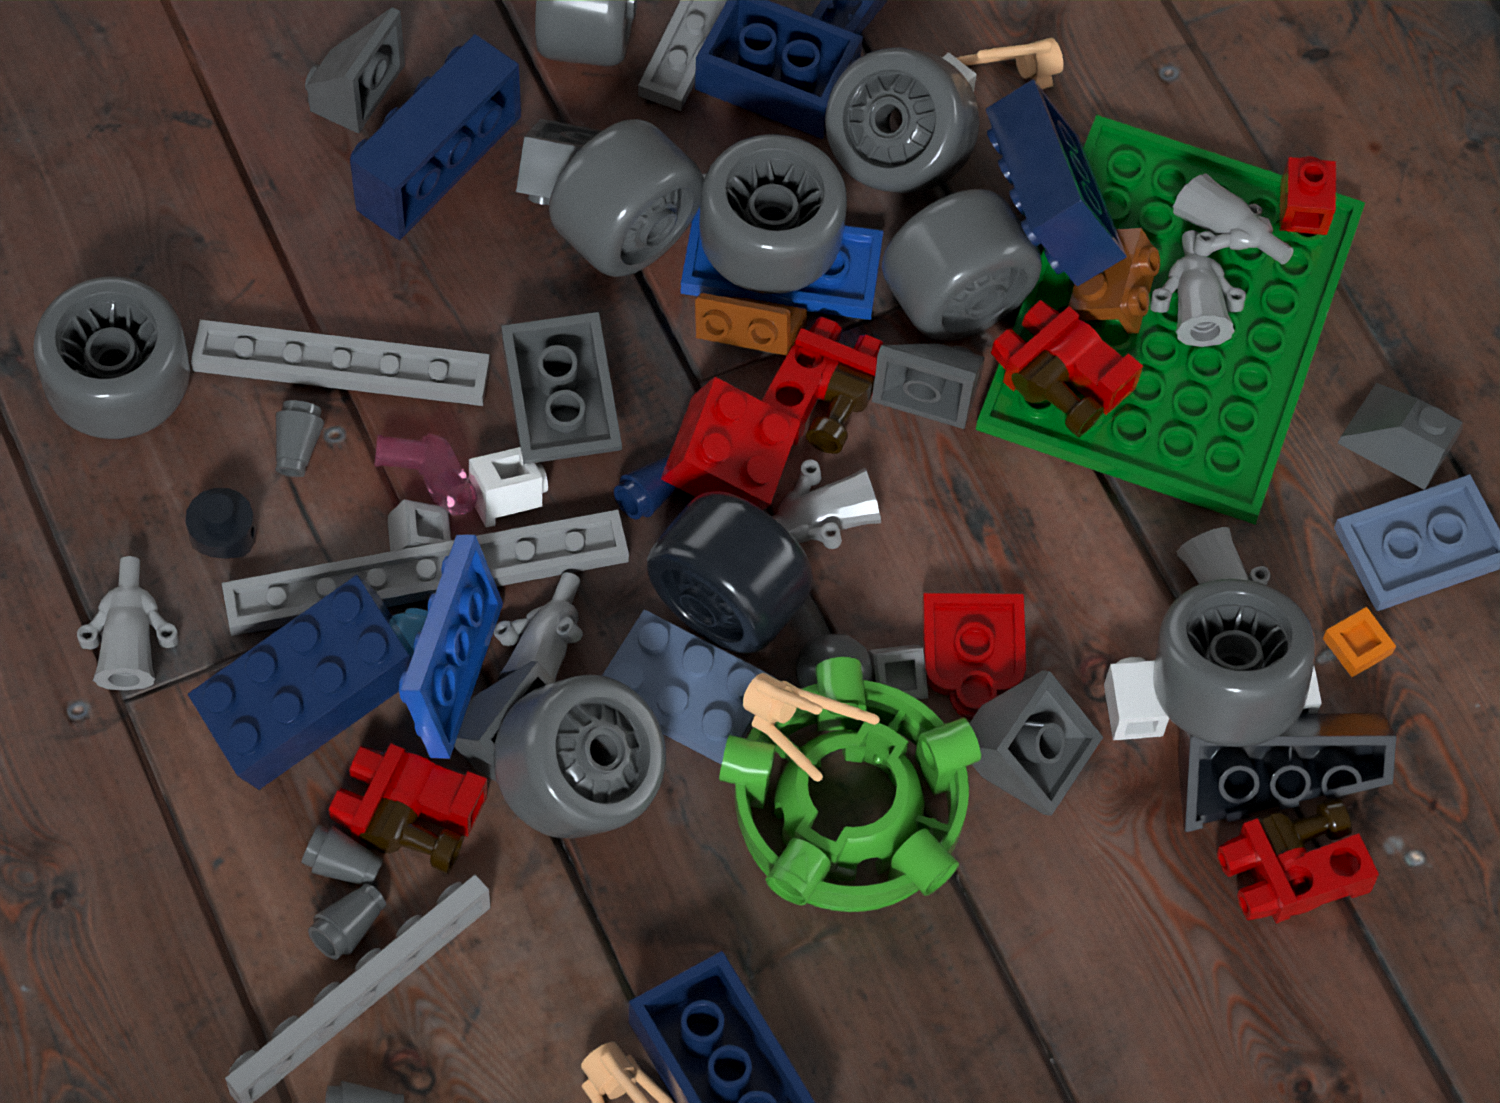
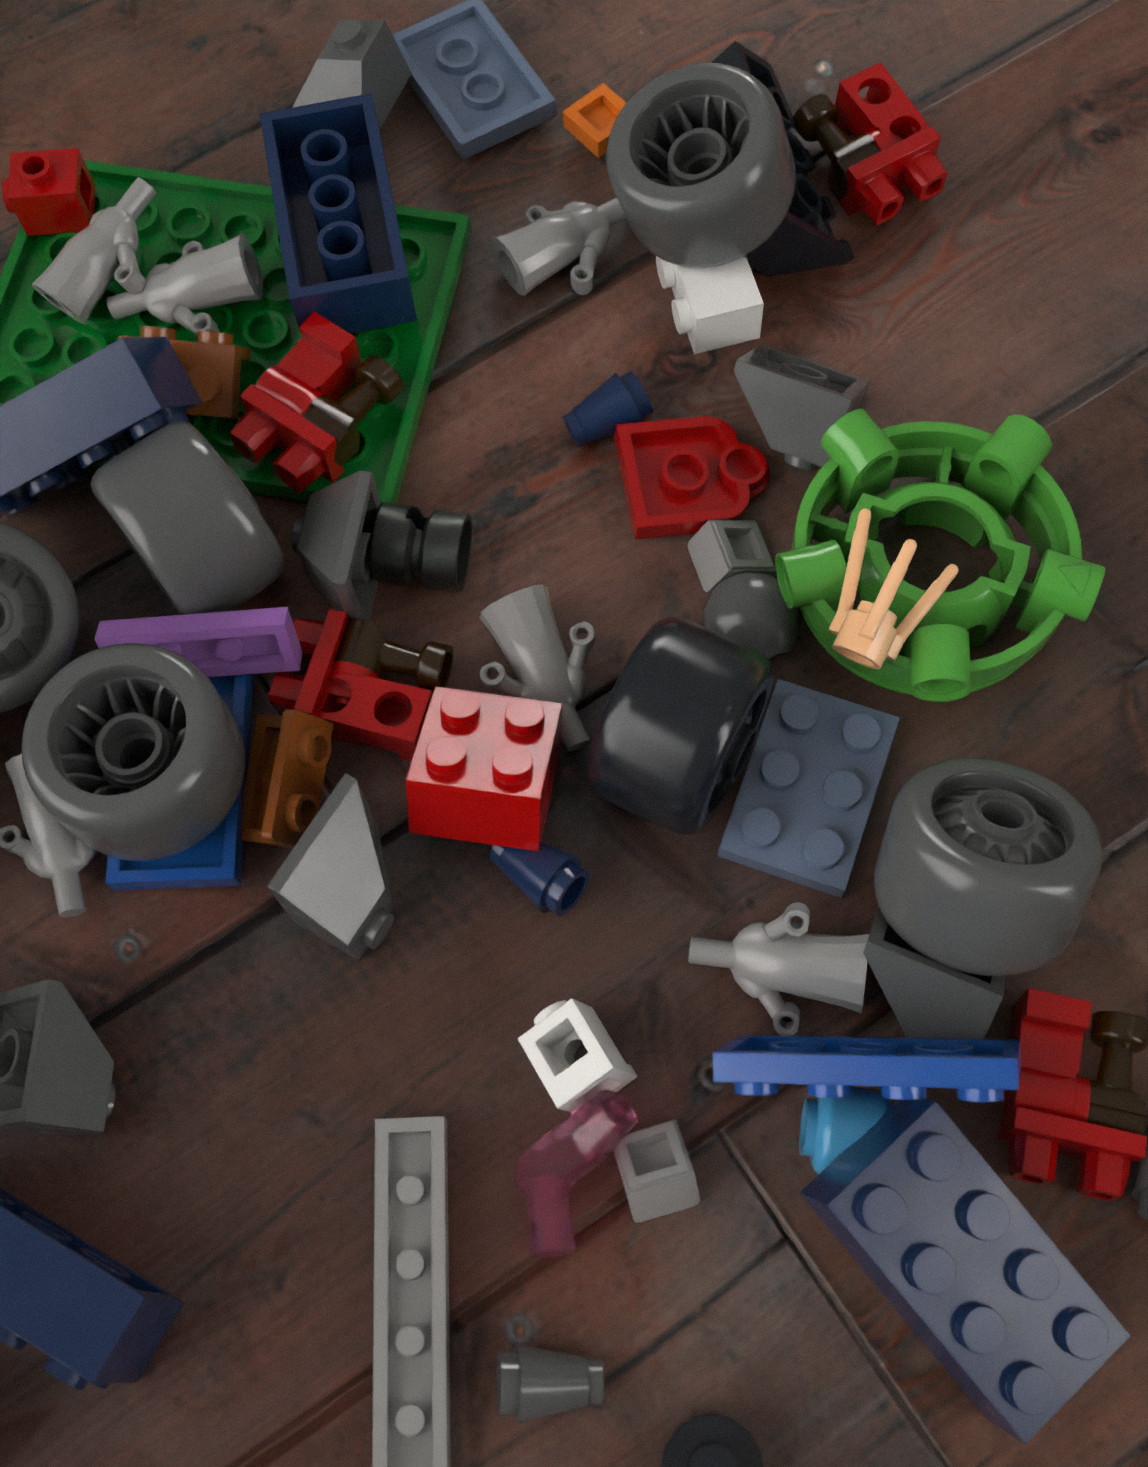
camera: 90 degrees left, 5 degrees up
(415, 572) = (733, 1165): light grey plate -> none
(560, 388) = (431, 1001): dark grey slope -> none
(626, 197) = (118, 955): dark grey wheel -> none
(666, 347) = (338, 875): none -> slope
(861, 269) = (216, 641): none -> medium lavender plate
(932, 437) = (420, 546): none -> pearl dark grey wheel
(1046, 599) = (612, 403): none -> dark blue cone
(1244, 397) = (337, 214): none -> dark blue brick

